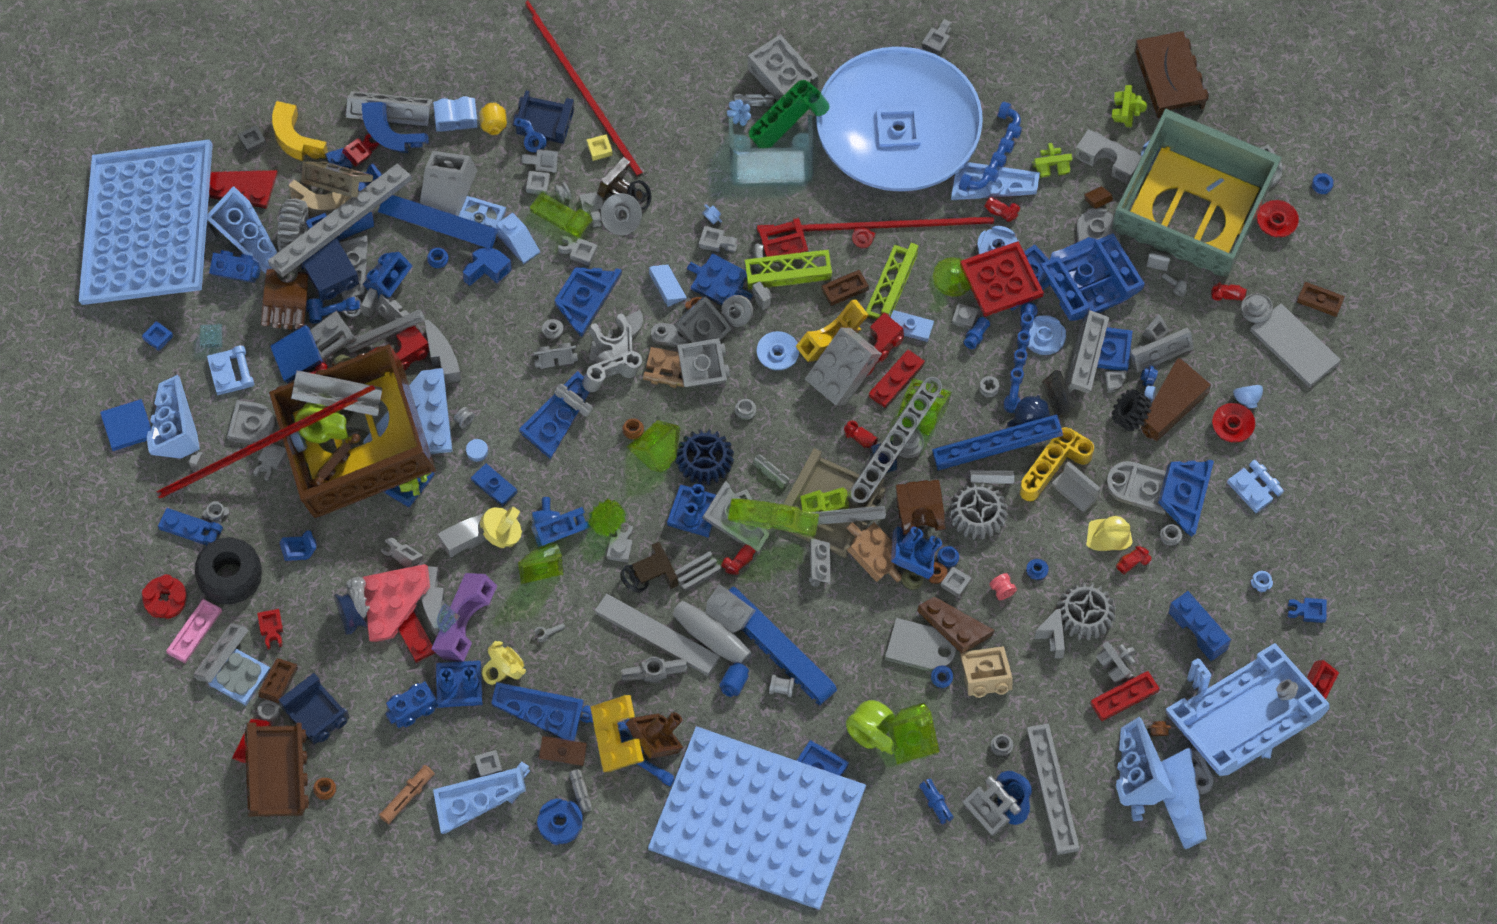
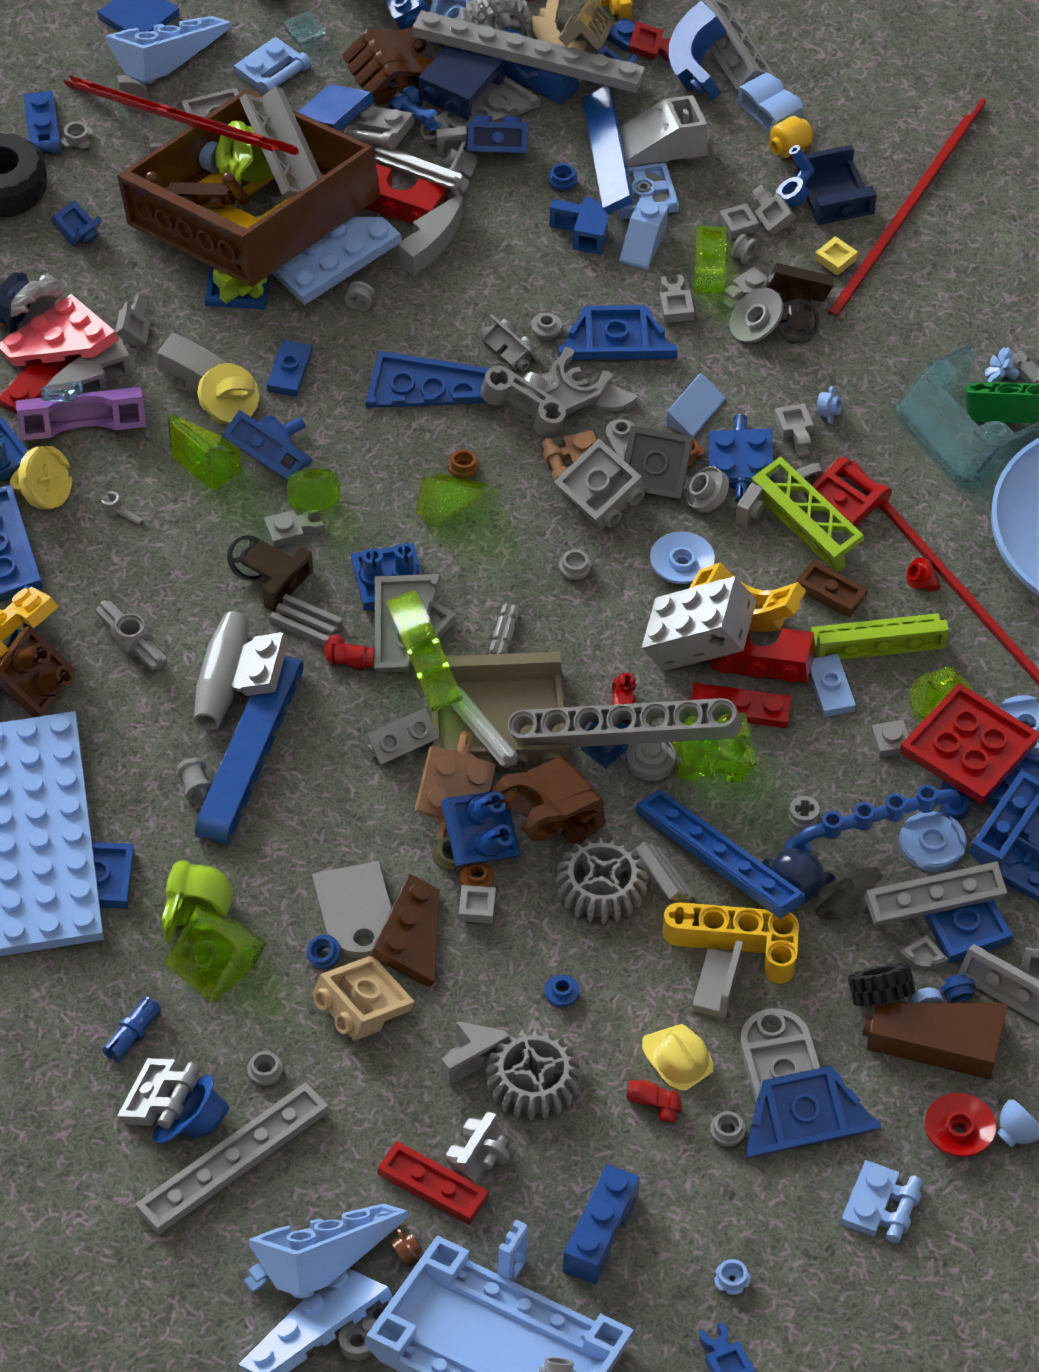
camera: 60 degrees right, 10 degrees down
(477, 450) = (326, 330): light blue tile -> none
(573, 400) = (454, 382): light grey axle -> none
(657, 634) = (187, 620): light grey tile -> none
(704, 445) = (472, 551): dark blue gear -> none
(734, 679) = (171, 725): blue brick -> none
(827, 501) = (493, 702): lime slope -> none
(948, 556) = (511, 879): blue plate -> none
(975, 335) = (873, 760): blue pin -> none
(1003, 586) = (505, 960): coral wheel -> none

